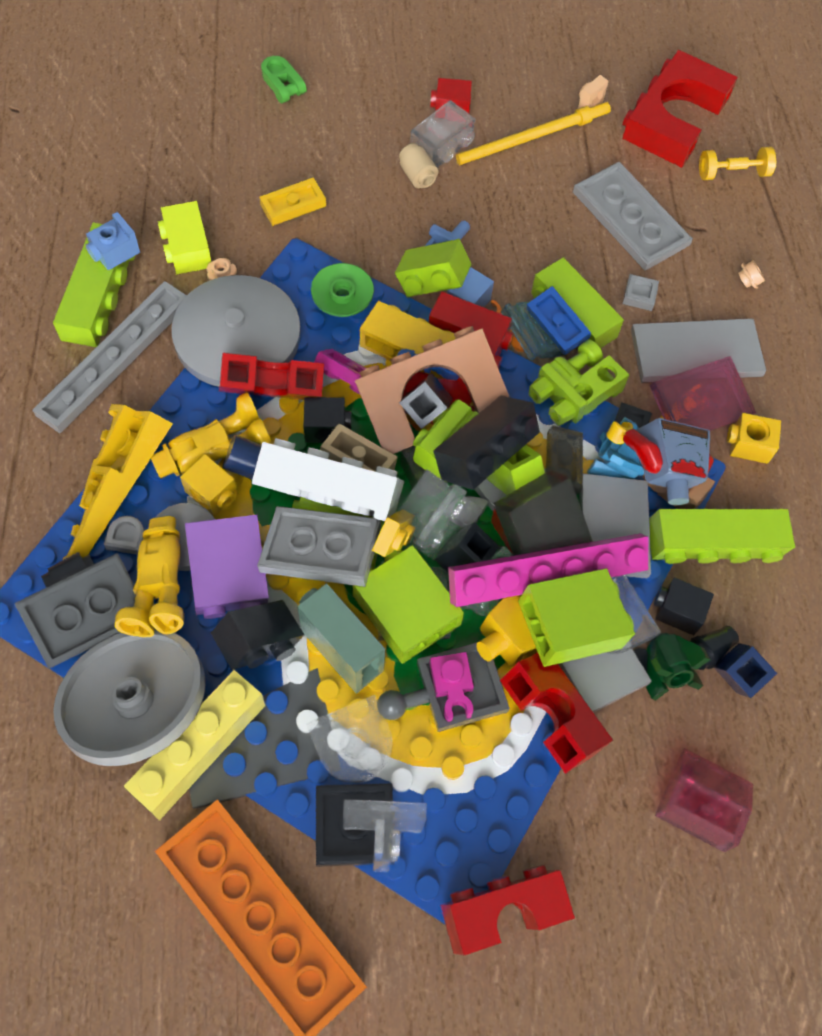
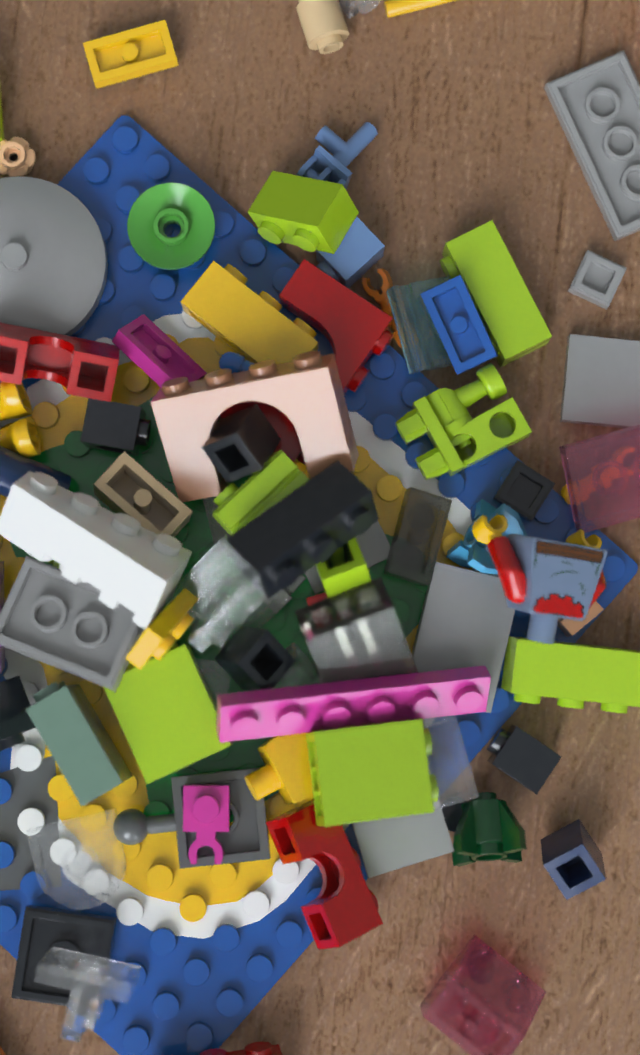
camera: 15 degrees right, 20 degrees up
(716, 644) = (546, 815): black cone -> none

